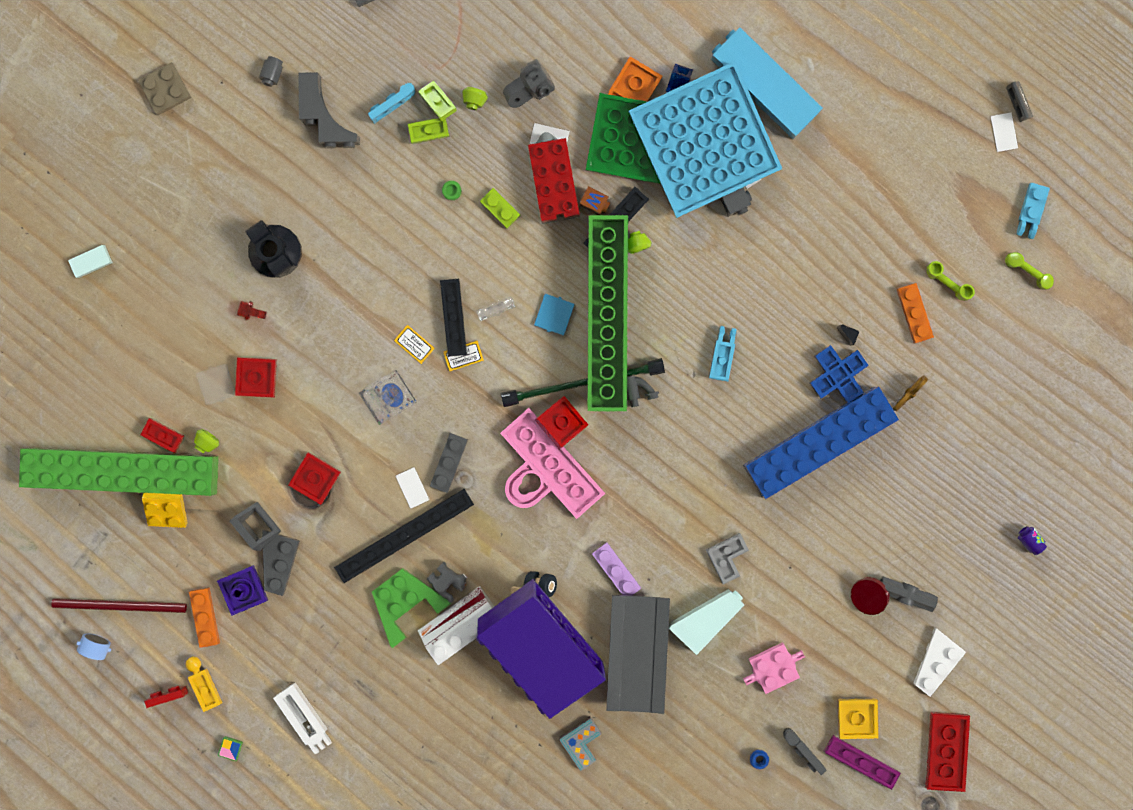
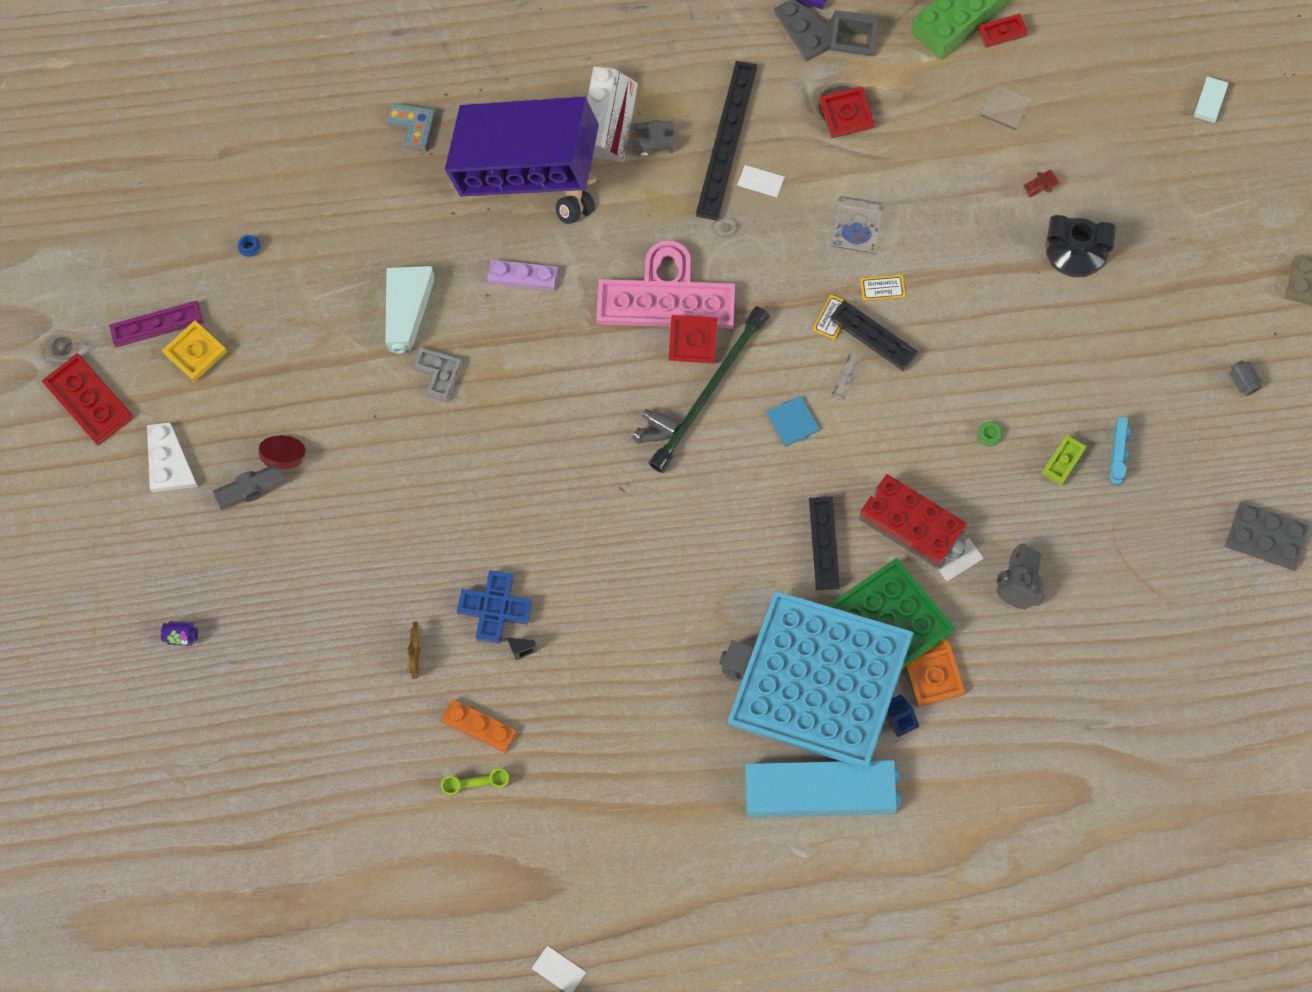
camera: 140 degrees right, 20 degrees down
(205, 441) = (964, 57): lime cone -> none
(255, 377) = (980, 139): red plate -> none
(313, 111) = (1173, 382): dark grey arch -> none
(400, 595) = (681, 91): bright green wing -> none
(437, 101) = (1083, 489): lime plate -> none
(448, 462) = (752, 226): dark grey plate -> none
(474, 98) = (1056, 522): lime cone -> none
(500, 208) = (933, 459): lime plate -> none
(595, 201) = (860, 540): dark orange brick -> none
(607, 312) = (749, 453): bright green brick -> none
(638, 242) = (786, 542): lime cone -> none
(638, 654) = (438, 225): dark grey hinge -> none
(722, 356) = (612, 524): medium azure hinge -> none
(774, 668) = (308, 324): bright pink plate -> none
(802, 750) = (216, 285): dark grey hinge -> none
(820, 442) = (452, 534): blue brick -> none
(1015, 259) = (432, 860): lime bar -> none
(1032, 209) = (462, 925): medium azure hinge -> none

